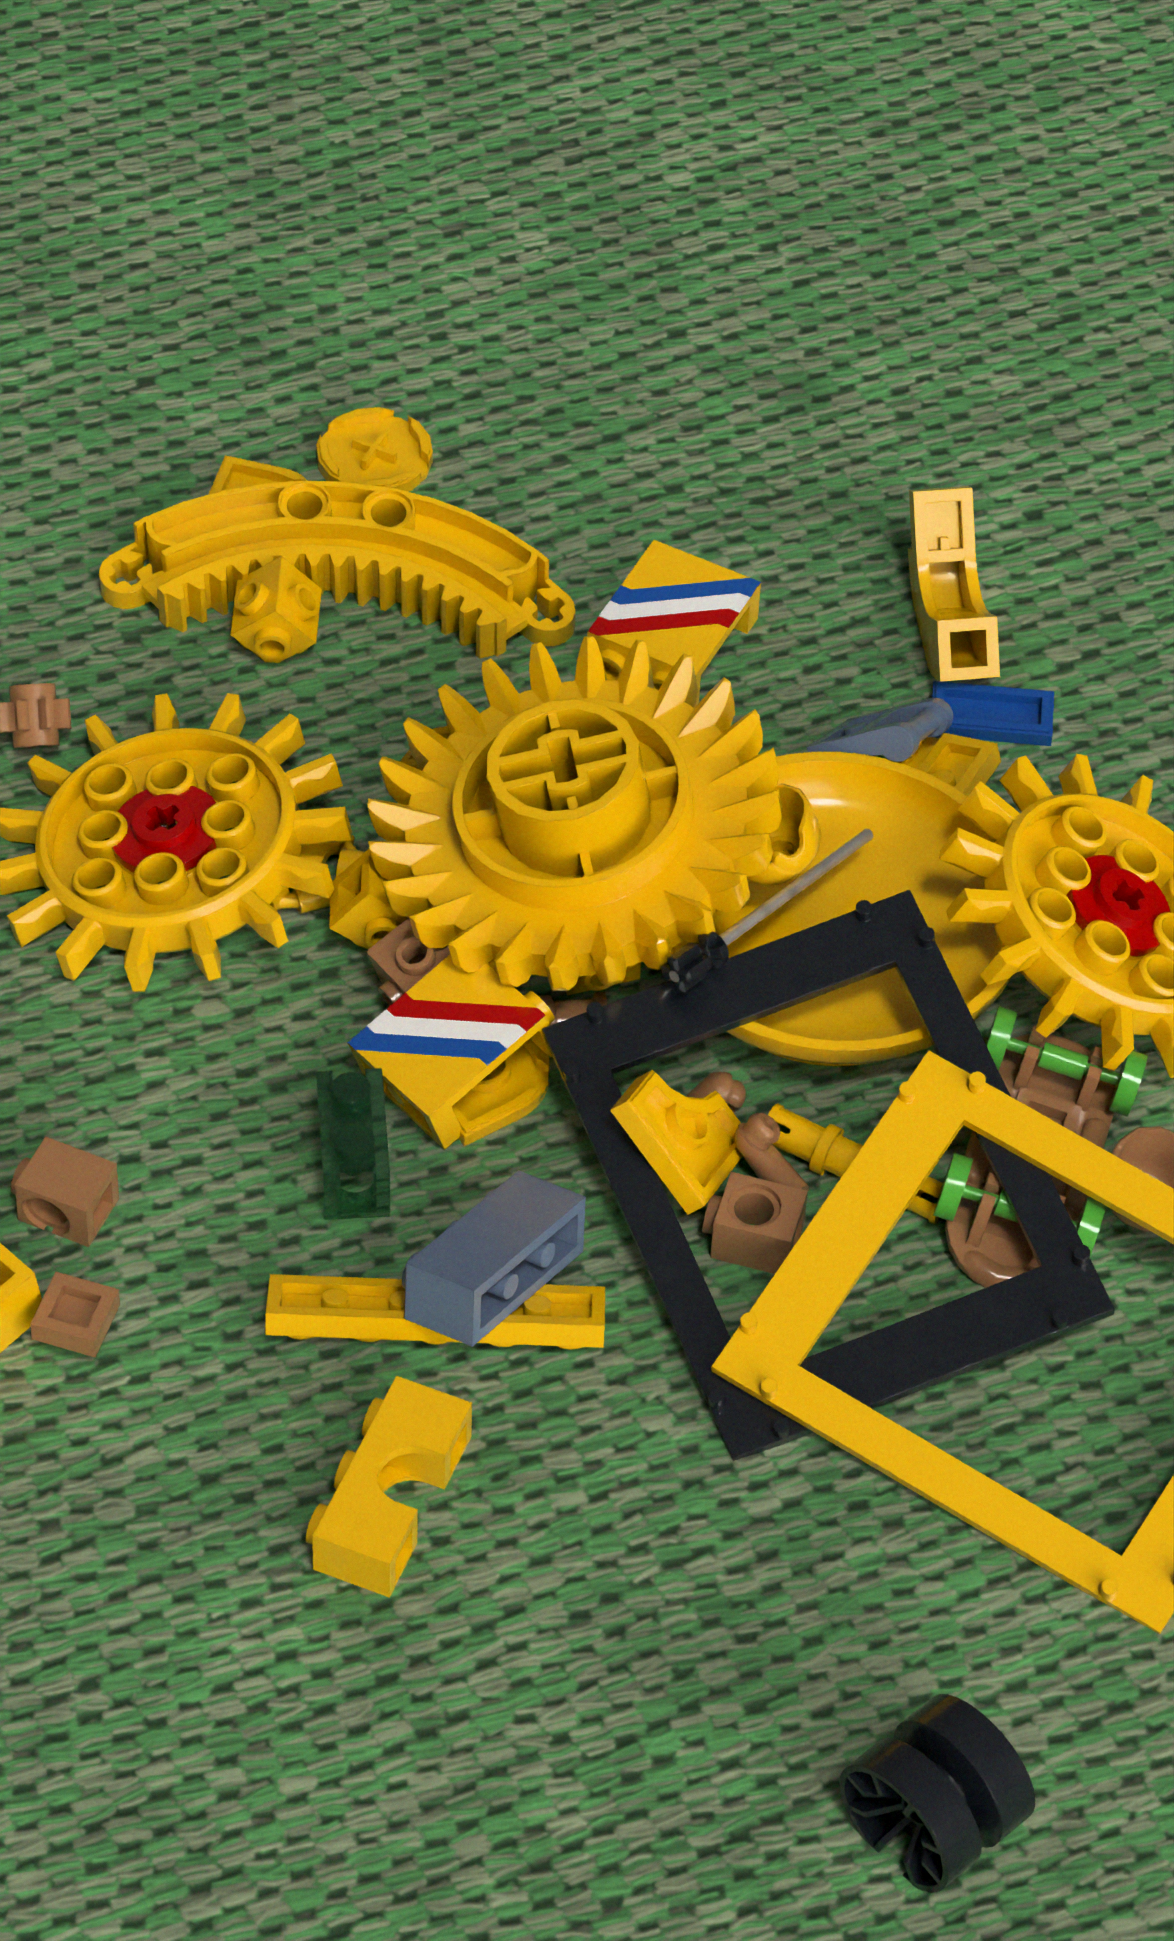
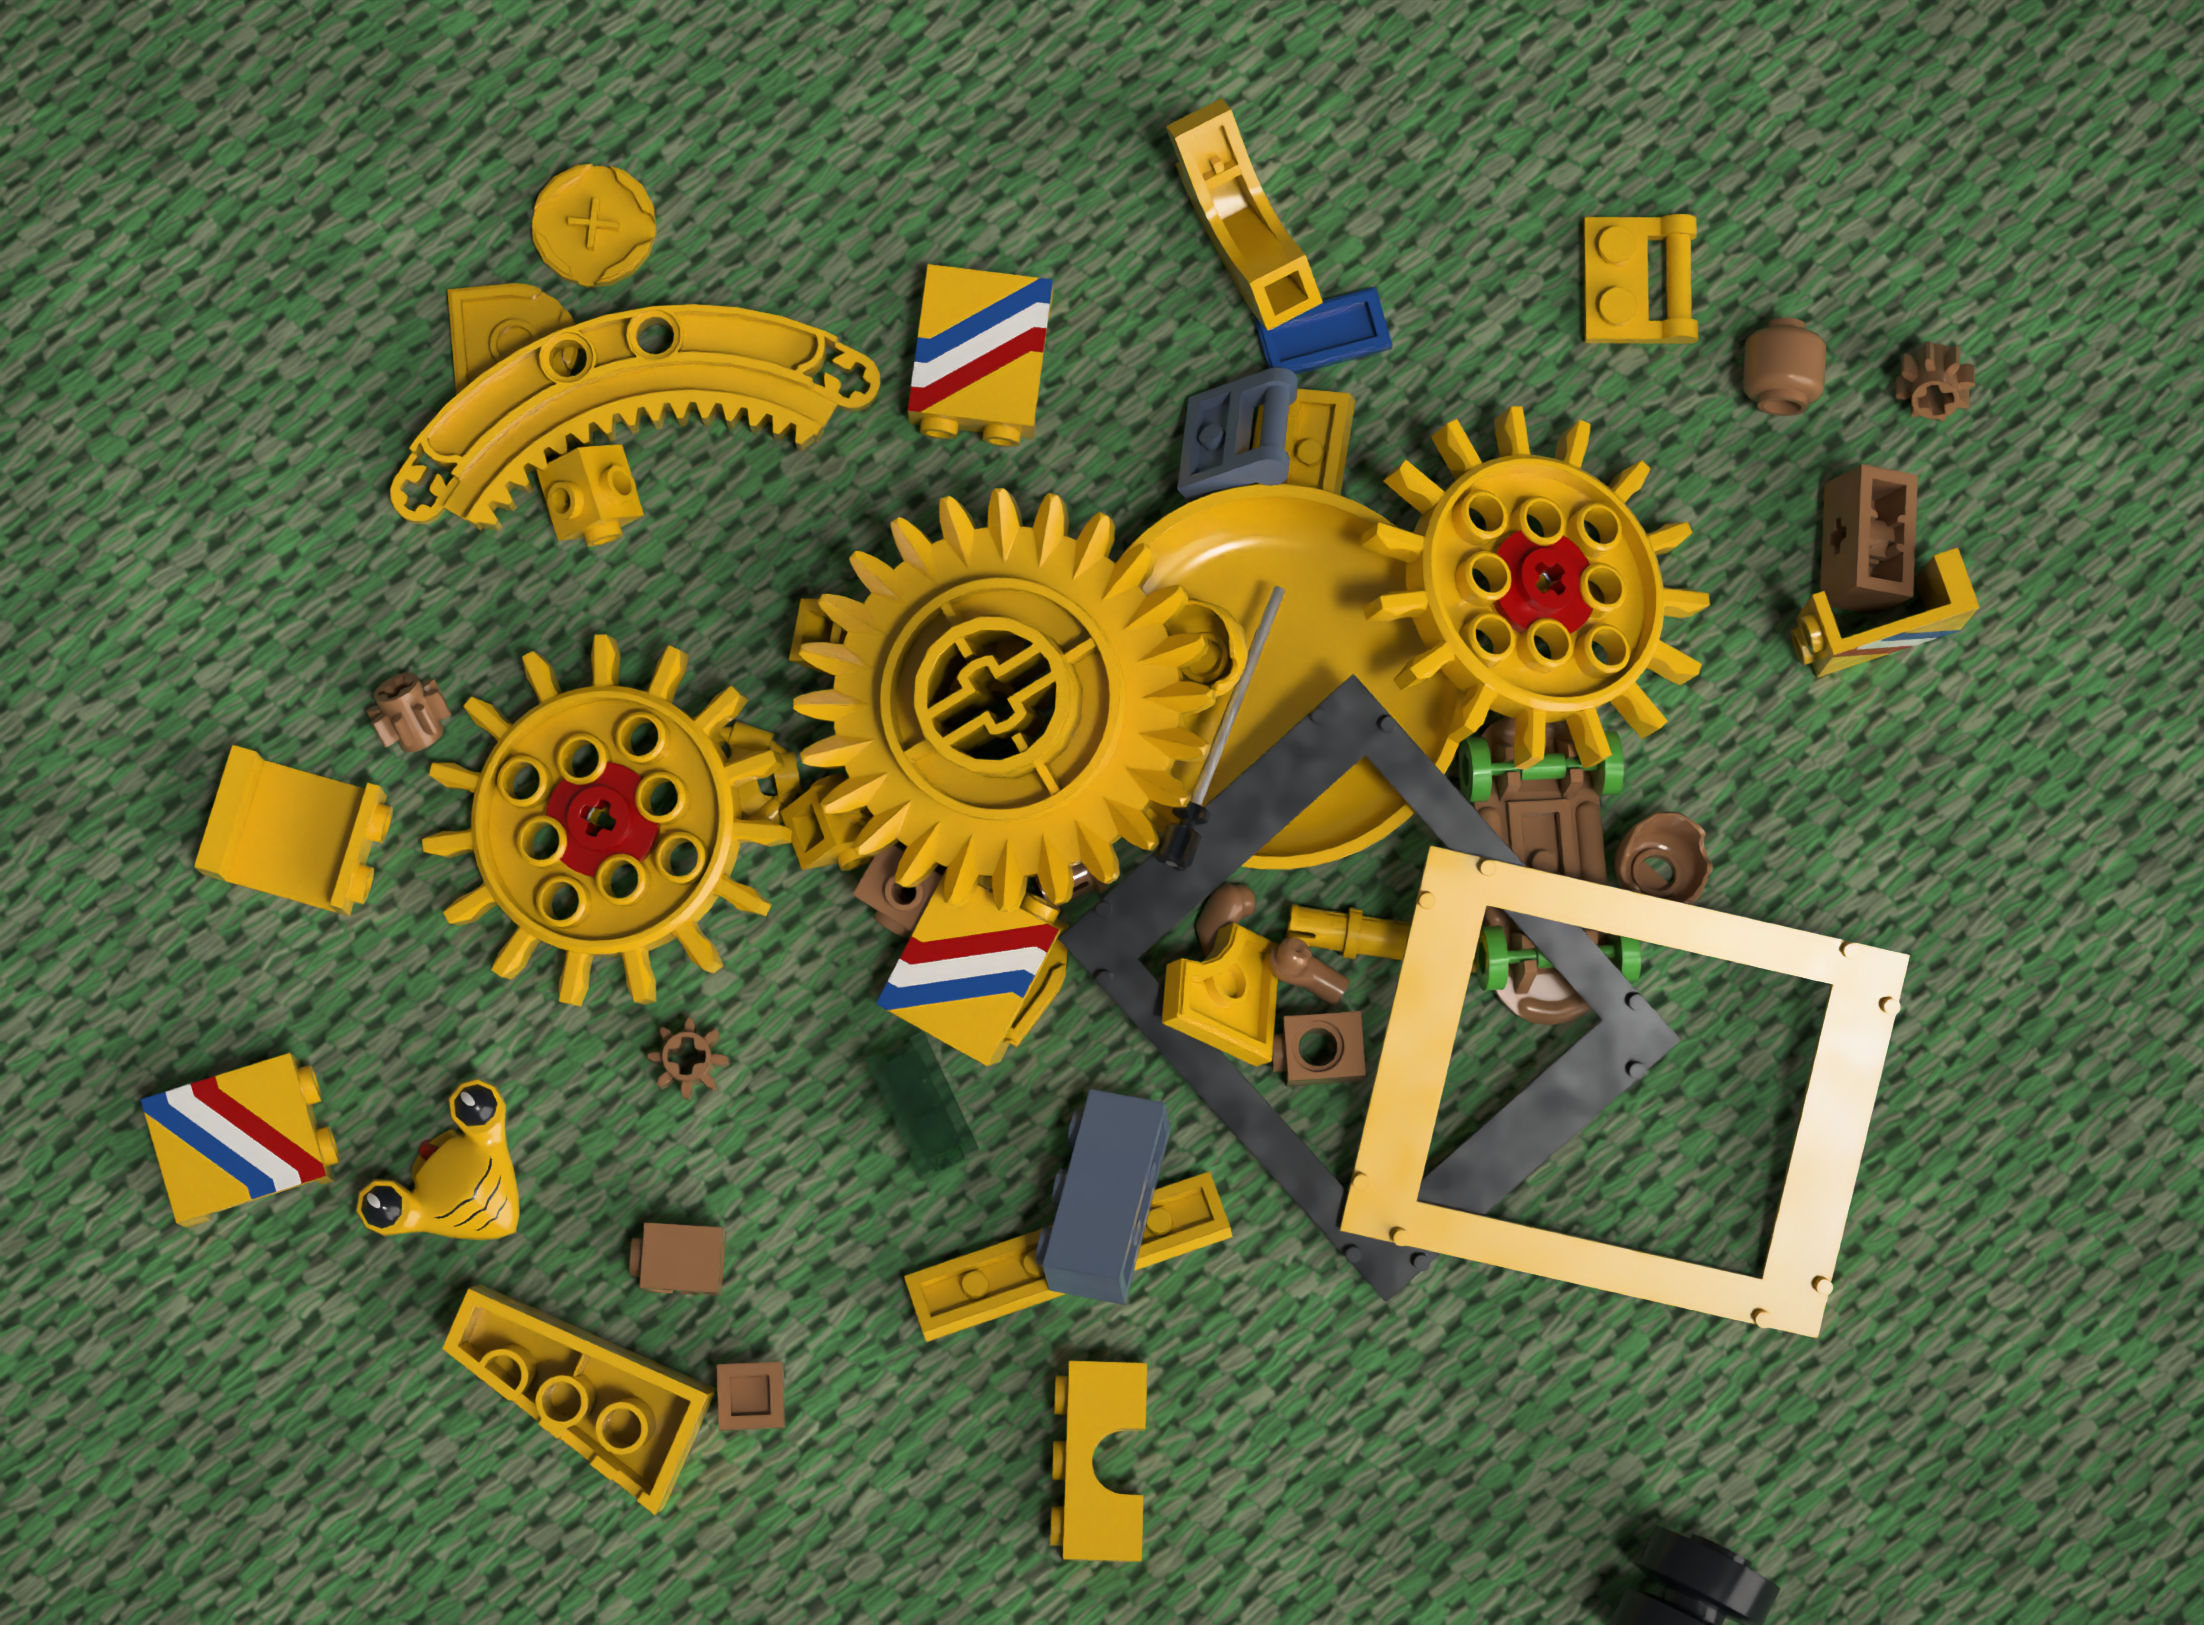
camera: 20 degrees left, 30 degrees up
(152, 1043) = (701, 1071): none -> medium nougat gear

